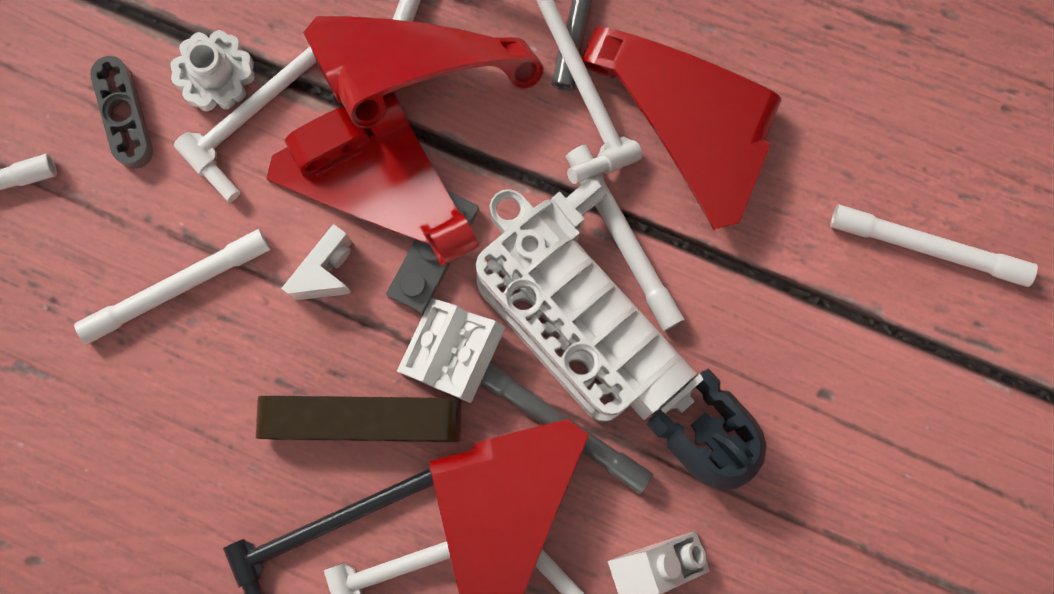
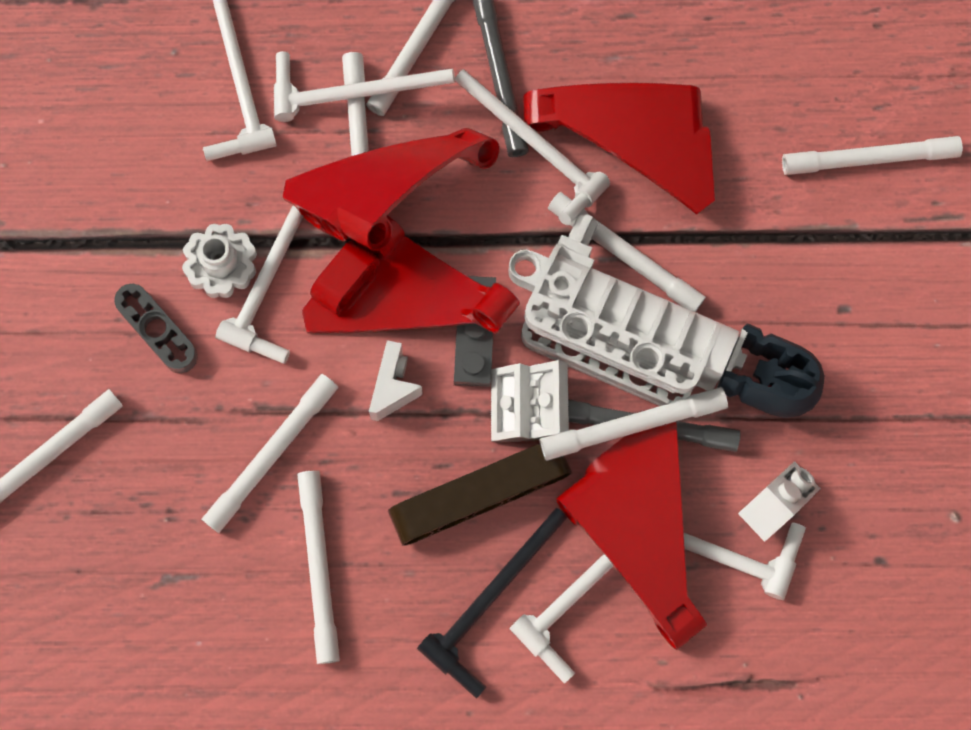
camera: 30 degrees left, 5 degrees down
(144, 485) = (325, 630): none -> white piece
(611, 430) = (574, 440): none -> white piece

